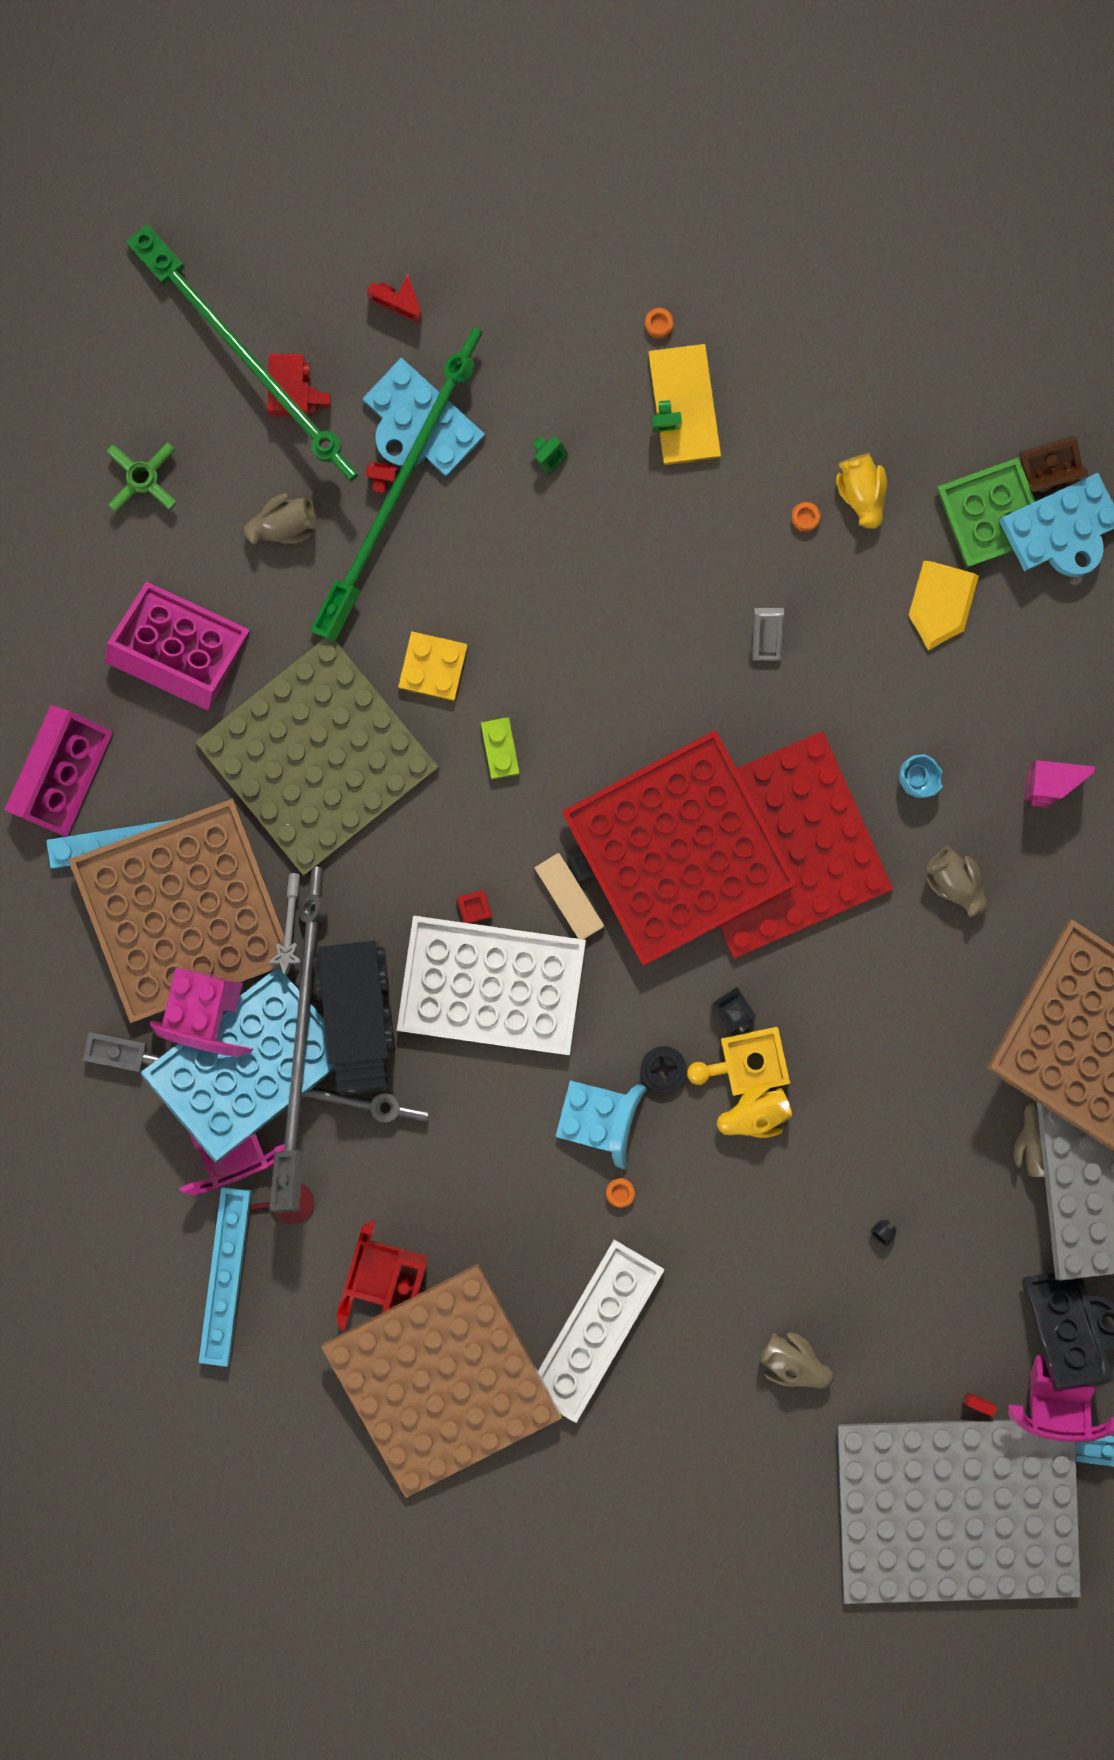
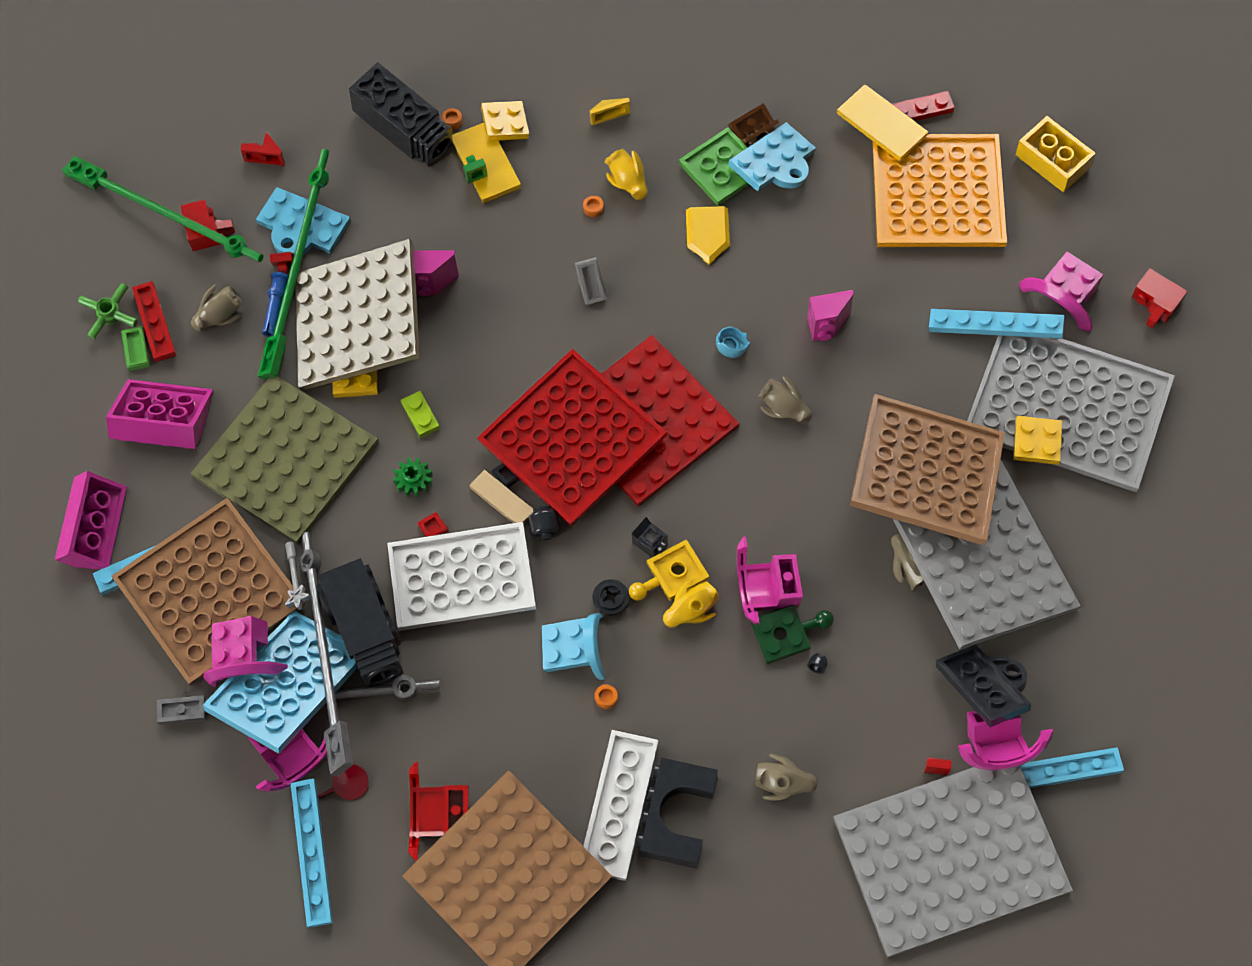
camera: 15 degrees left, 20 degrees down
(165, 539) = (135, 348): none -> bright green tile
(197, 509) = (154, 321): none -> red plate
(362, 521) = (276, 295): none -> blue pin
(456, 592) = (356, 315): none -> plate
(459, 842) = (411, 469): none -> green gear
(549, 453) = (399, 215): green tile -> none
(568, 557) = (434, 270): none -> dark pink slope
(591, 307) = (400, 115): none -> black piece
(611, 948) = (544, 522): none -> black head
(625, 1387) = (673, 779): none -> black arch
(727, 351) = (504, 120): none -> yellow plate
(855, 1117) = (767, 584): none -> dark pink piece
(868, 1194) = (789, 621): none -> dark green plate
(870, 375) = (609, 110): none -> yellow slope

